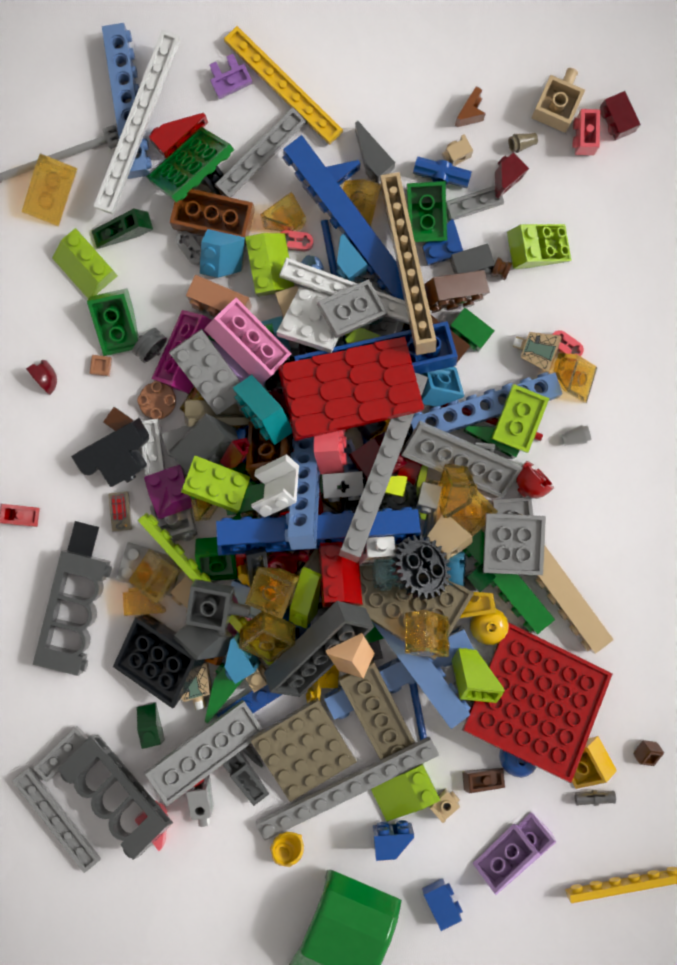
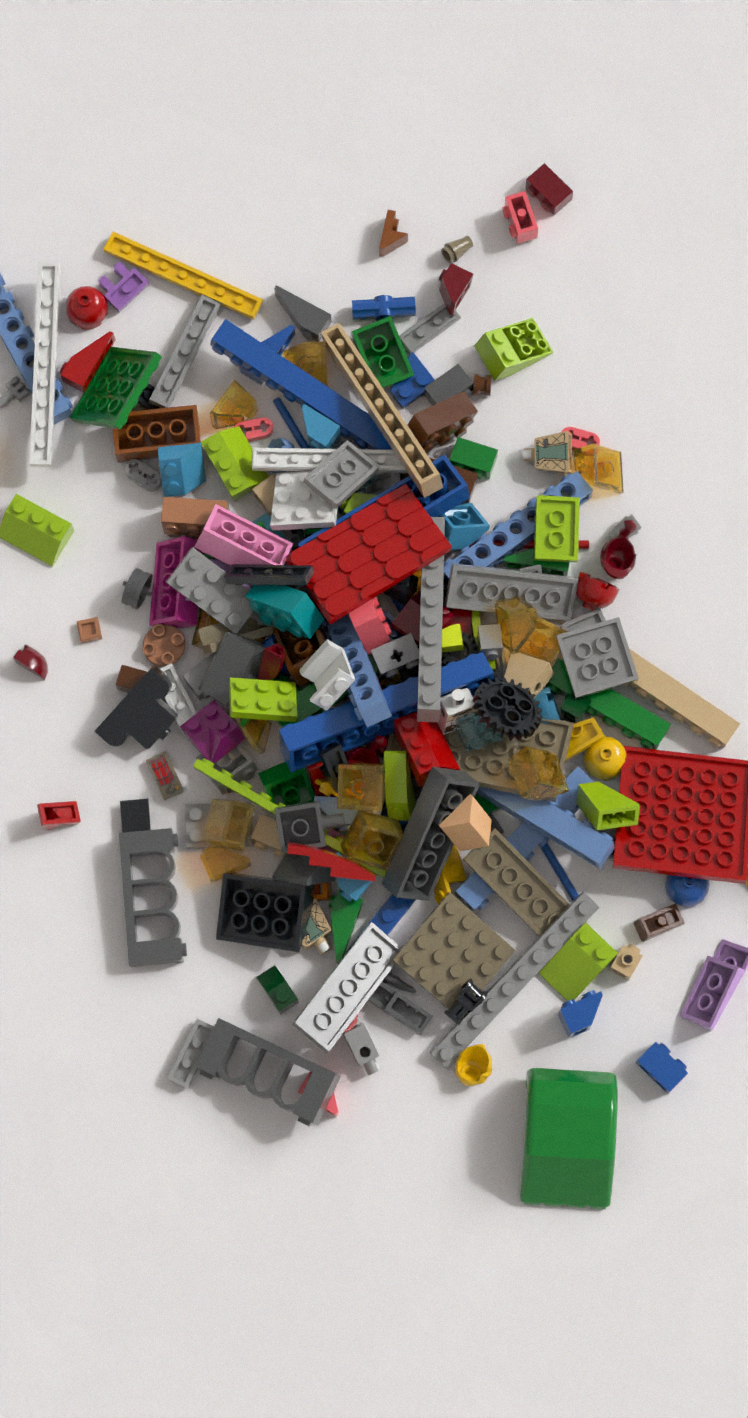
camera: 20 degrees left, 10 degrees down
(56, 819) = (211, 1126): light grey plate -> none
(114, 321) = (89, 578): green slope -> none
(123, 228) = (63, 479): dark green slope -> none
(192, 85) = (86, 307): none -> red cylinder
(229, 652) = (339, 865): none -> red slope
(257, 679) = (375, 896): tan brick -> none
(258, 377) = (269, 574): none -> black plate
(301, 794) = (466, 1001): none -> black connector
(458, 151) = (393, 281): tan brick -> none
(559, 101) = (480, 196): tan brick -> none
(564, 456) = (618, 554): none -> dark red piece

